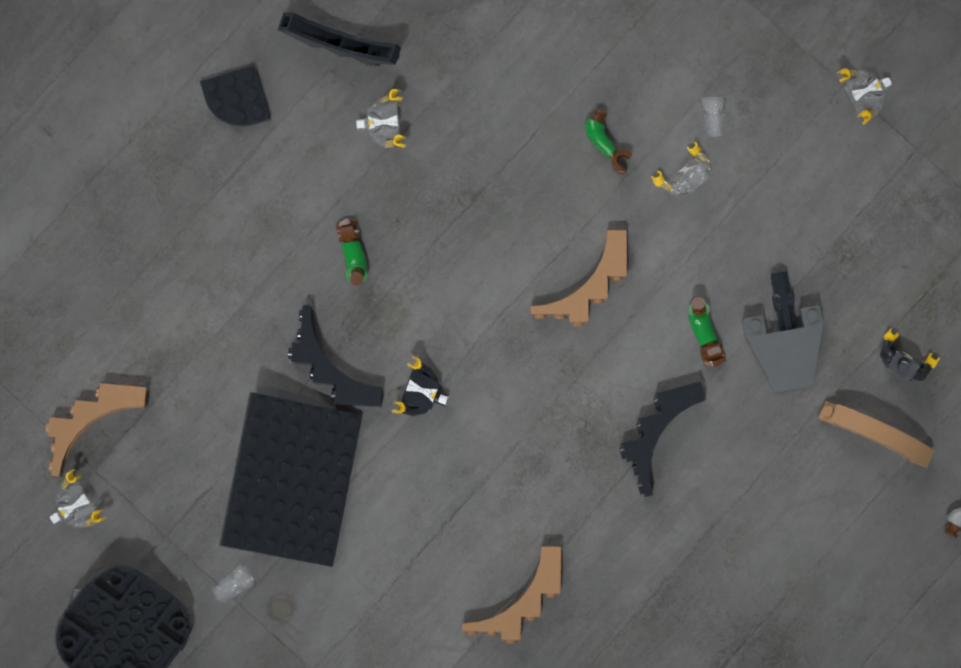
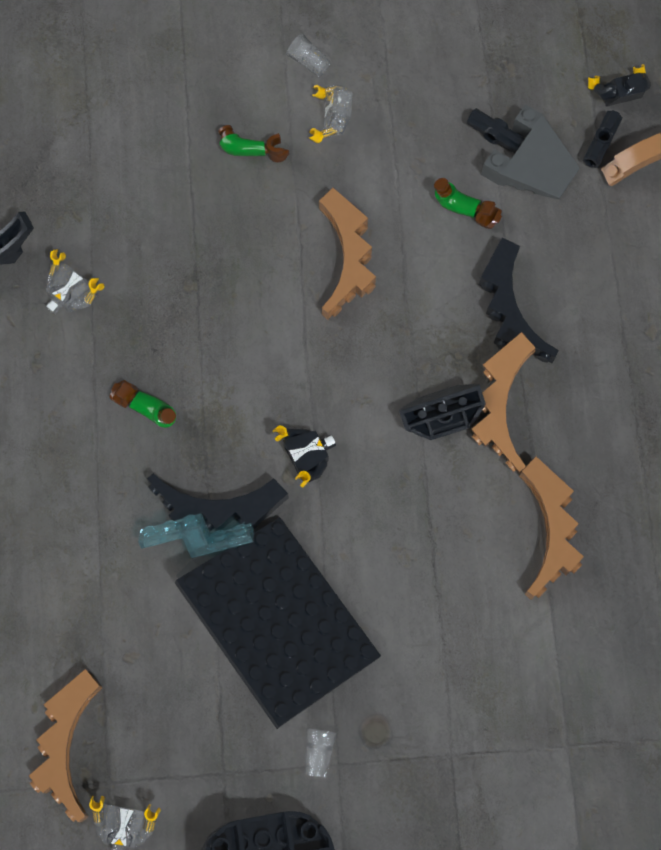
camera: 50 degrees left, 10 degrees down
(295, 374) = (196, 535): none -> clear light blue bracket
(534, 455) = (443, 411): none -> black wedge
(556, 501) = (502, 369): none -> medium nougat arch
(861, 379) = (599, 147): none -> black piece

